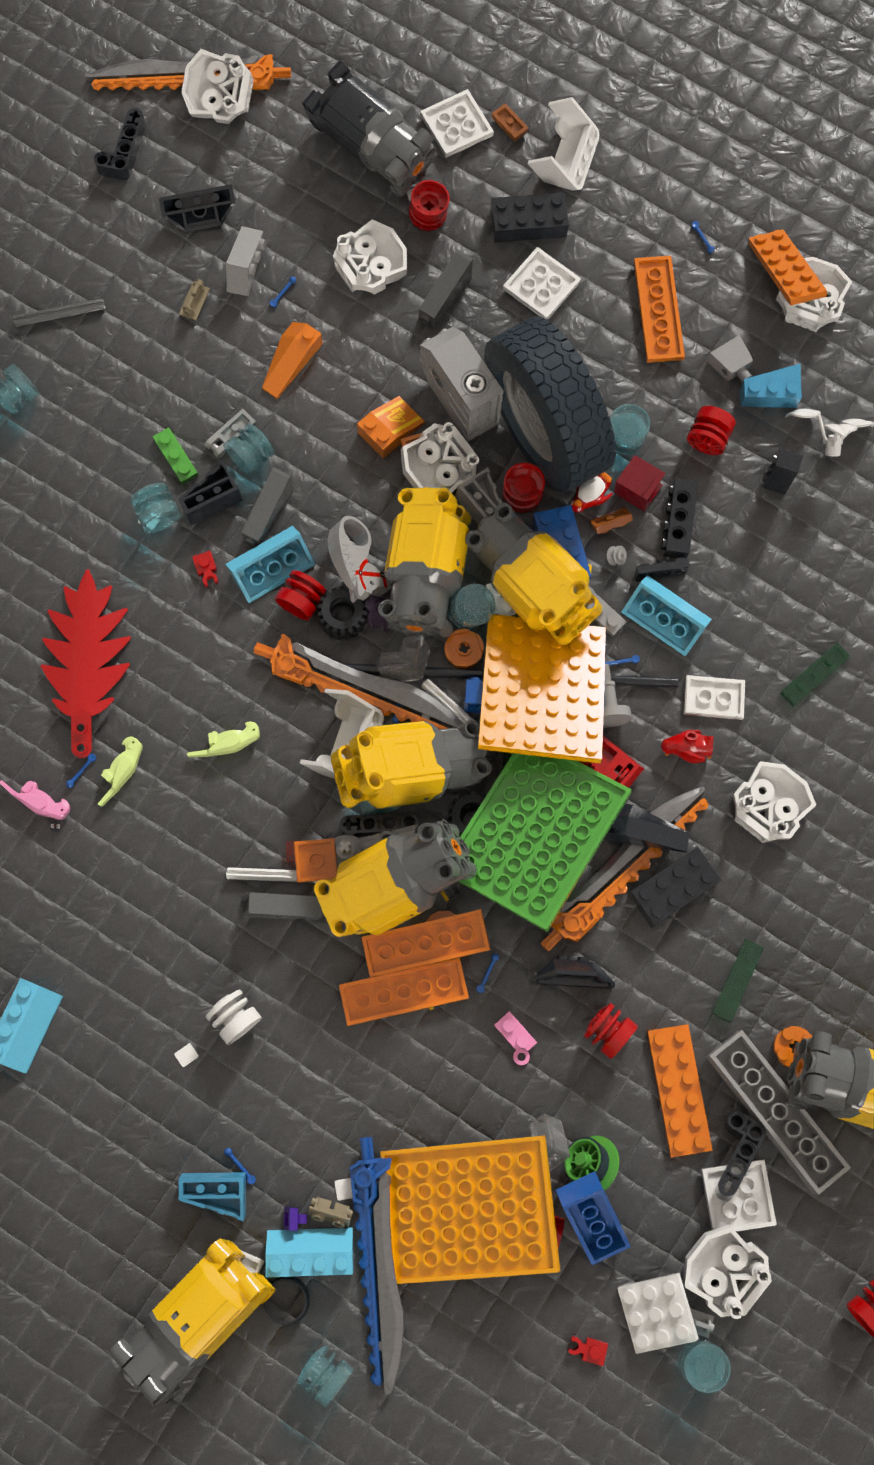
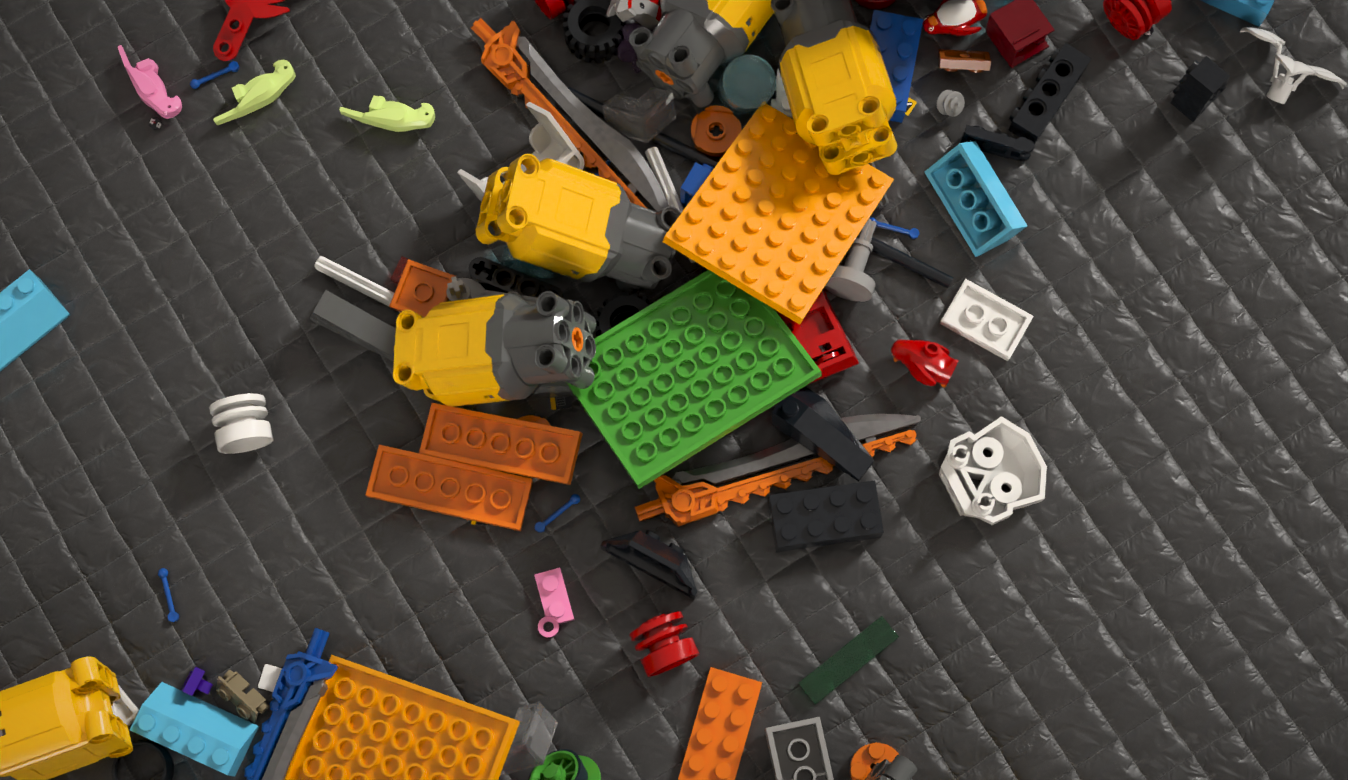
camera: 30 degrees right, 0 degrees up
(186, 1055) = (171, 443): white sticker -> none
(215, 1192) = (125, 609): dark azure wedge -> none
(608, 618) = (902, 165): light grey plate -> none
(815, 674) = (1123, 348): clear green tile -> none

